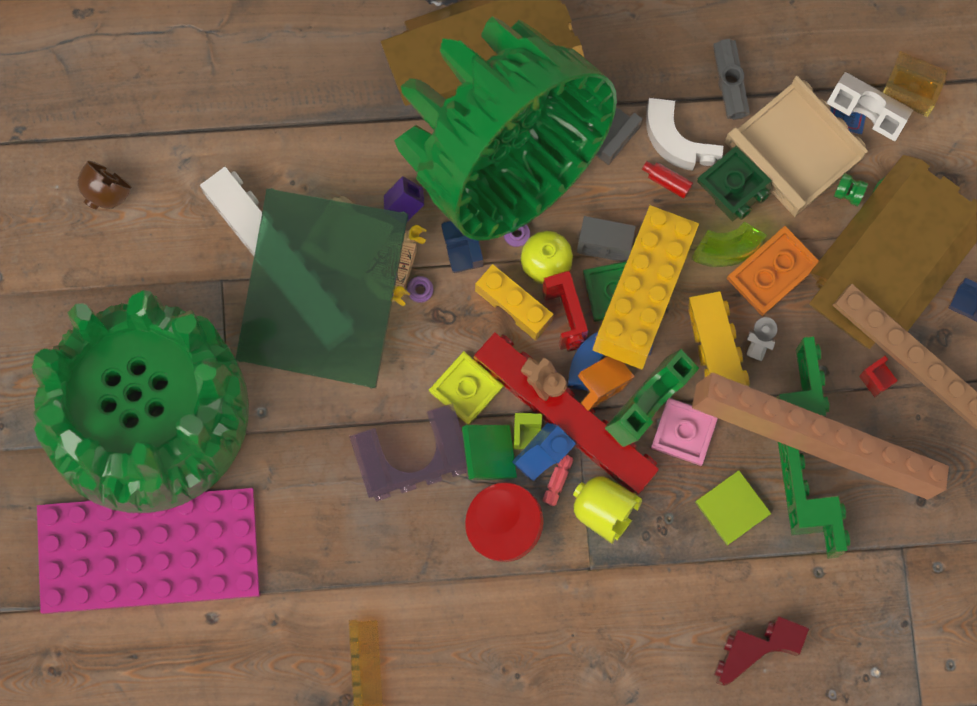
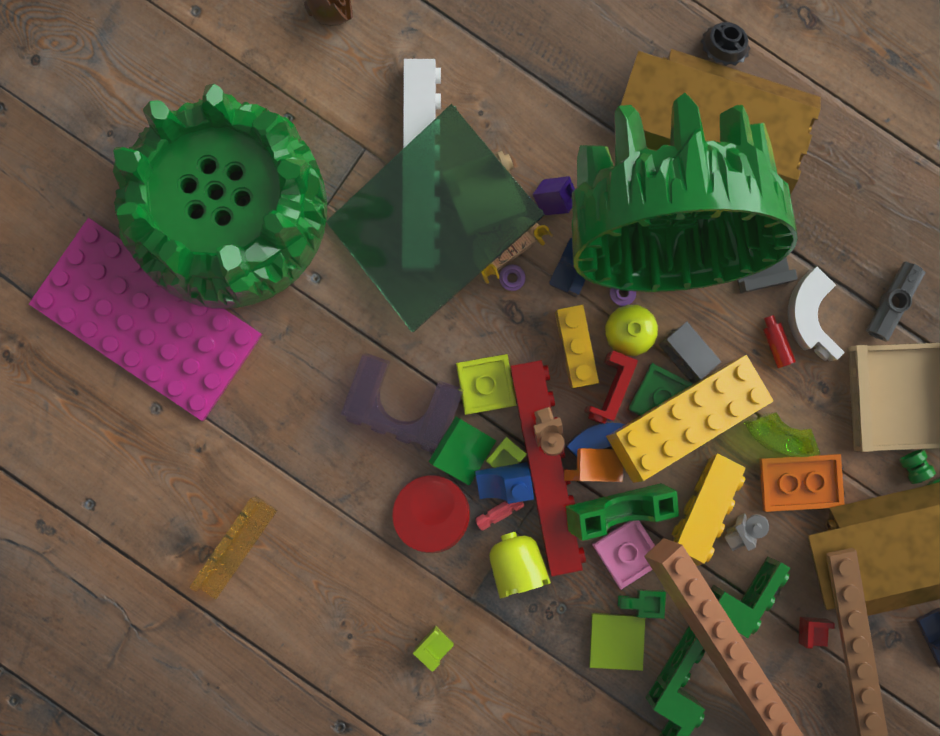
camera: 35 degrees right, 10 degrees up
(592, 629) = (433, 648): none -> lime panel
(731, 457) = (648, 603): none -> green plate
(736, 184) = (829, 390): dark green plate -> none

